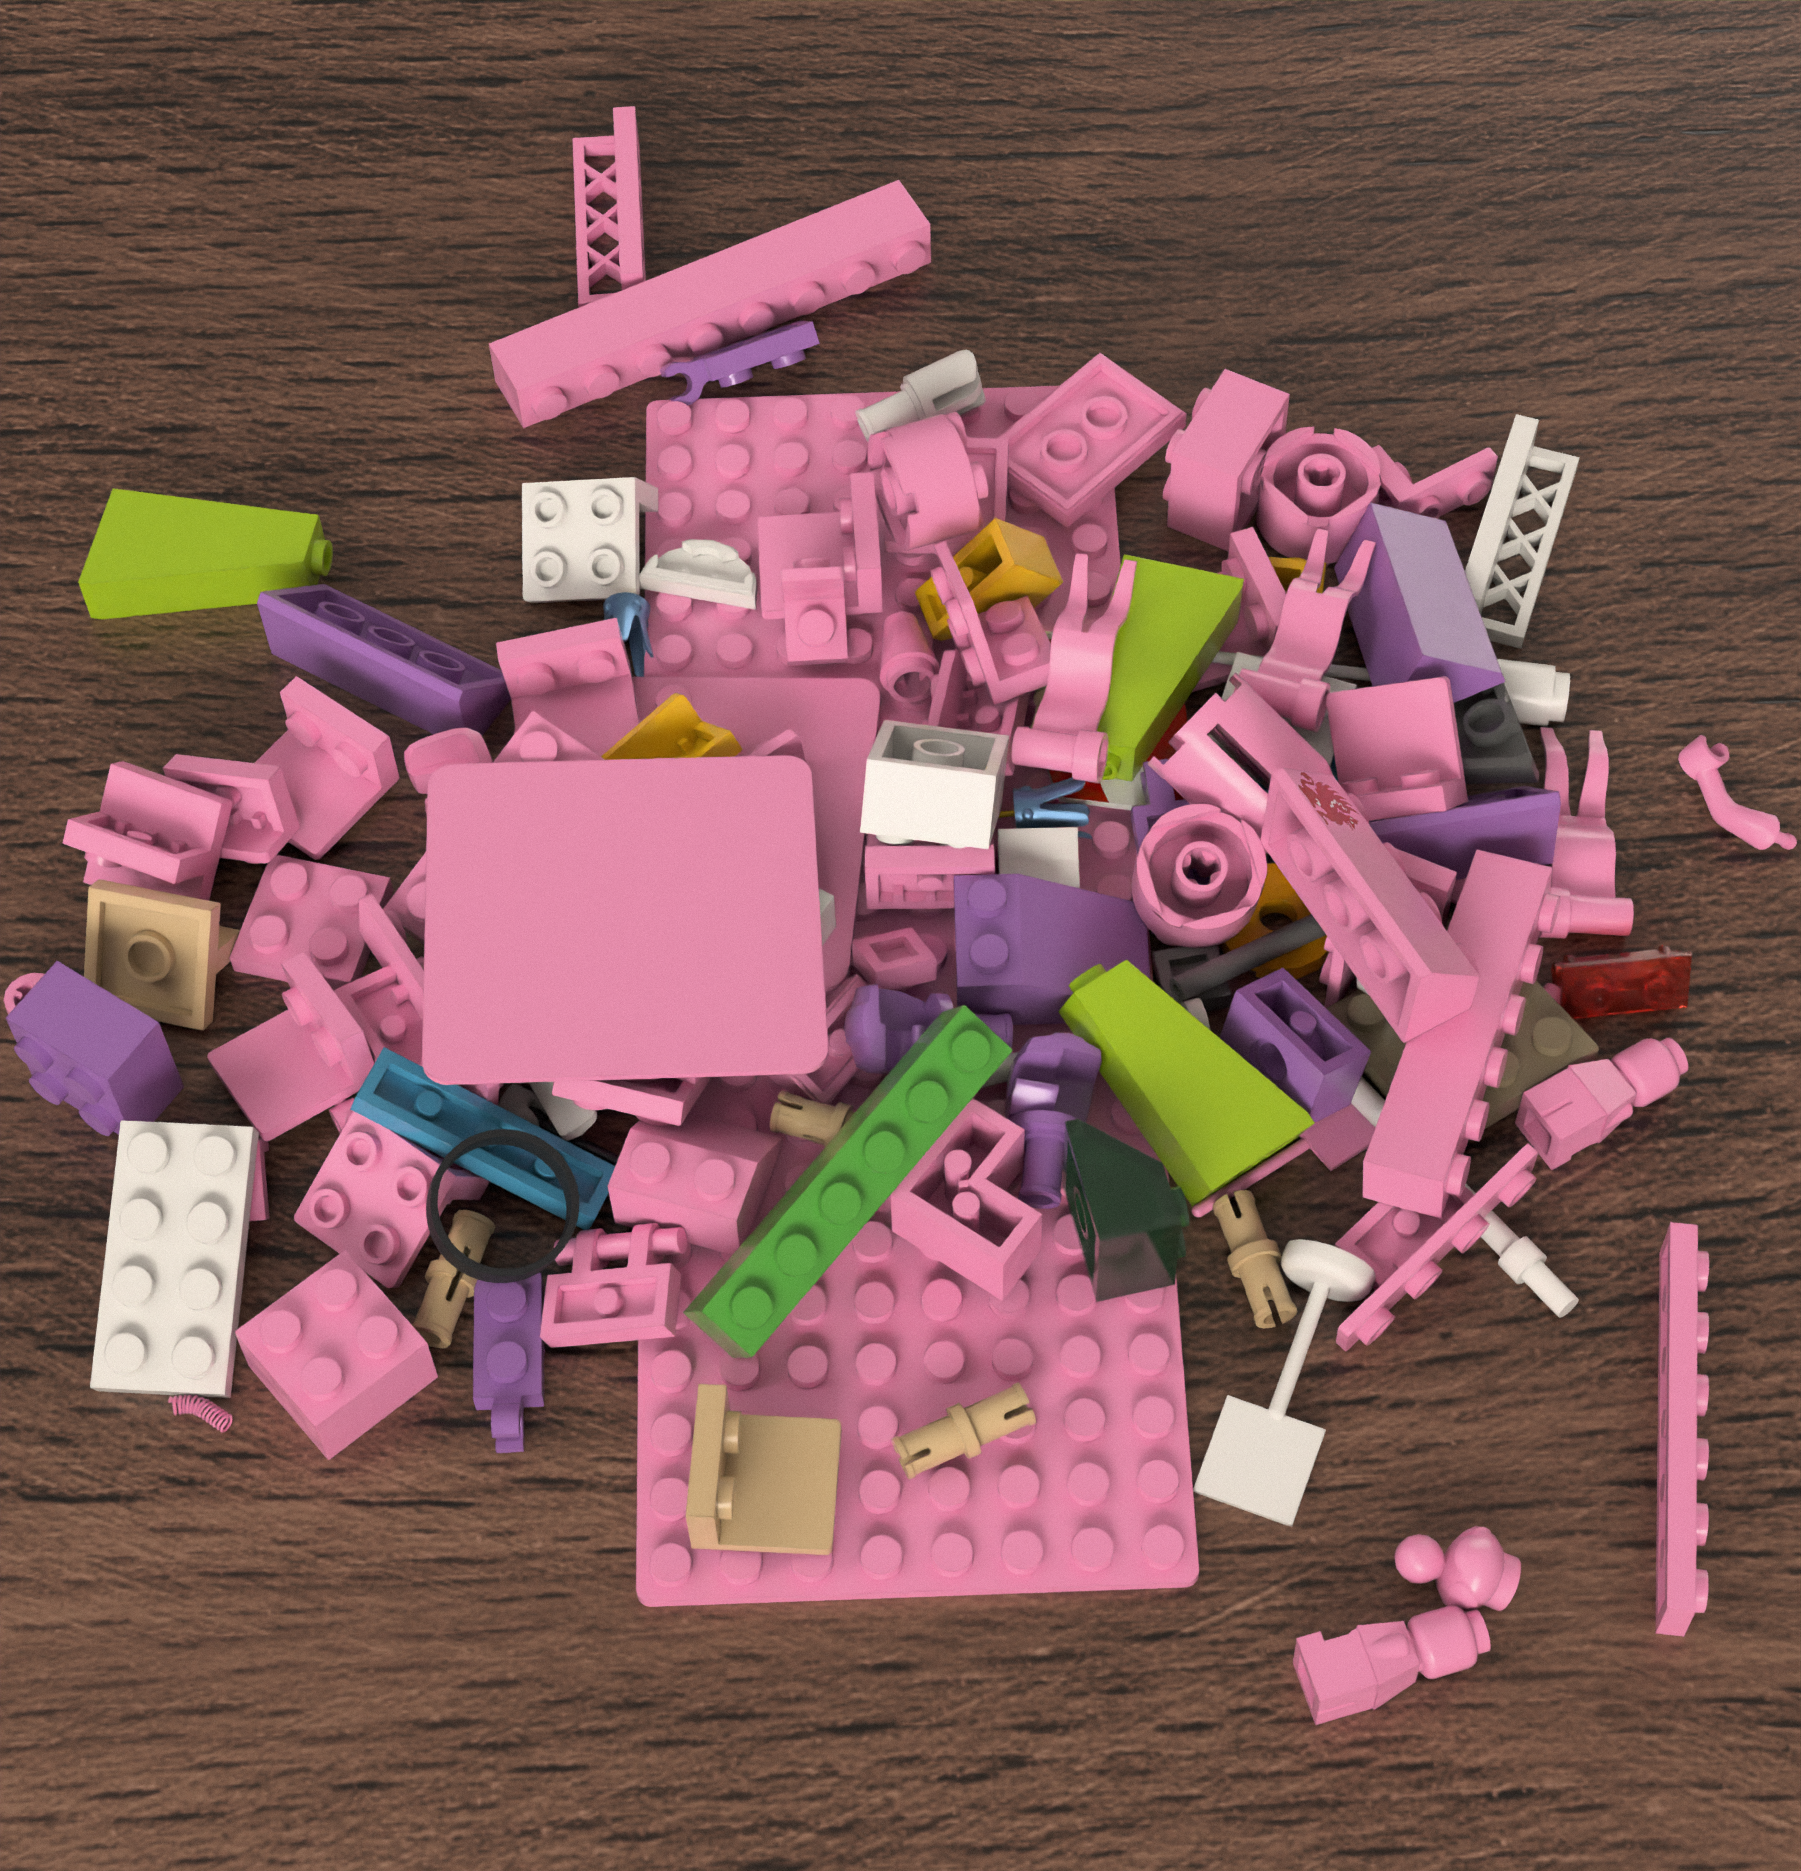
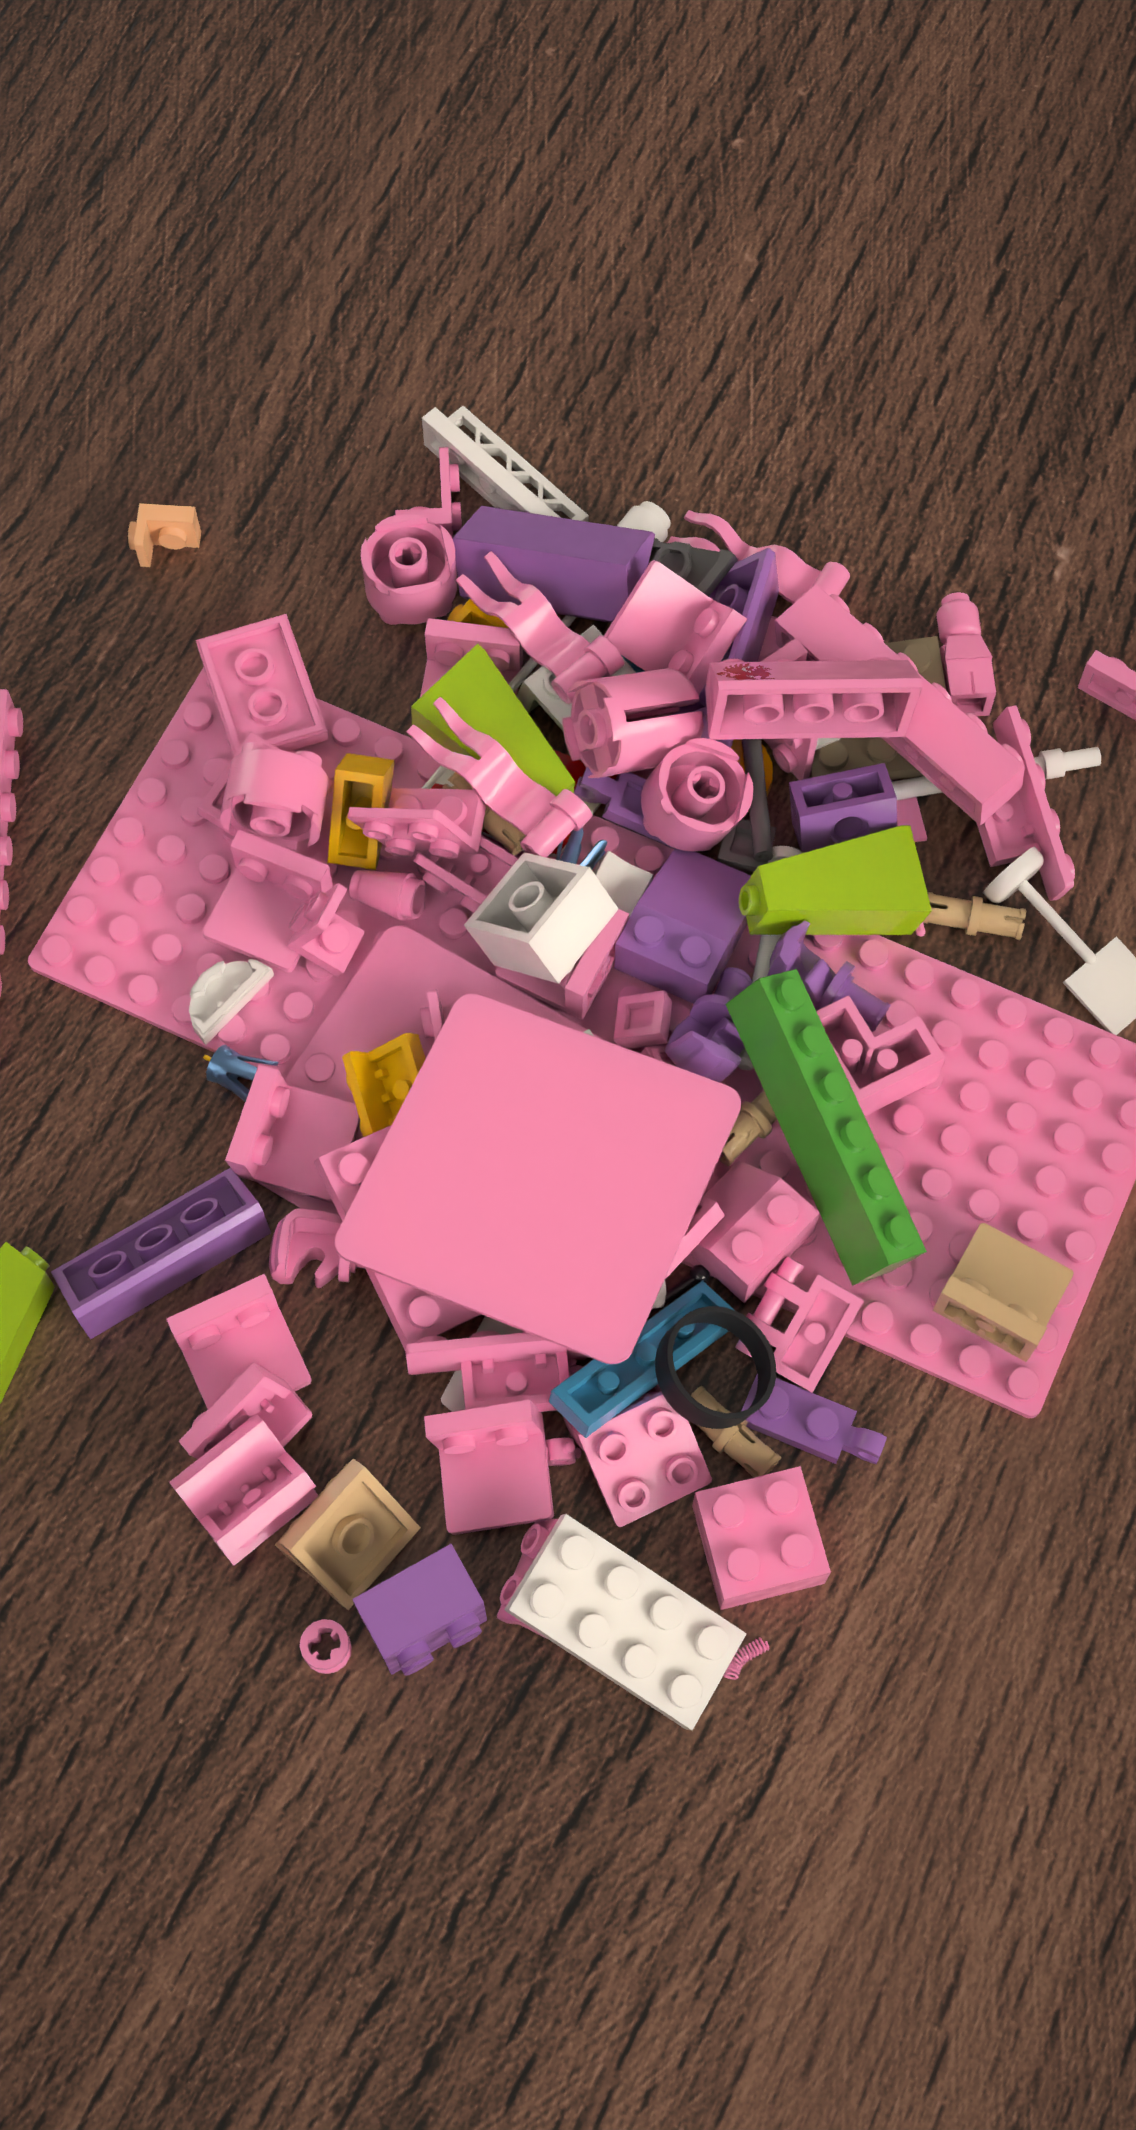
camera: 65 degrees left, 10 degrees up
(310, 911) = (369, 1408): bright pink plate -> none
(582, 538) = (143, 1061): white bracket -> none
(734, 362) = (34, 876): medium lavender plate -> none
(933, 390) = (166, 770): white arm -> none
(963, 1430) = (1026, 1149): tan pin -> none
(1122, 1213) = (930, 970): clear green slope -> none
(1219, 262) = (163, 526): none -> light nougat bracket
(1222, 457) = (349, 607): bright pink brick -> none
(1623, 985) = (889, 584): clear red hinge -> none
(1748, 824) = (746, 468): bright pink piece -> none

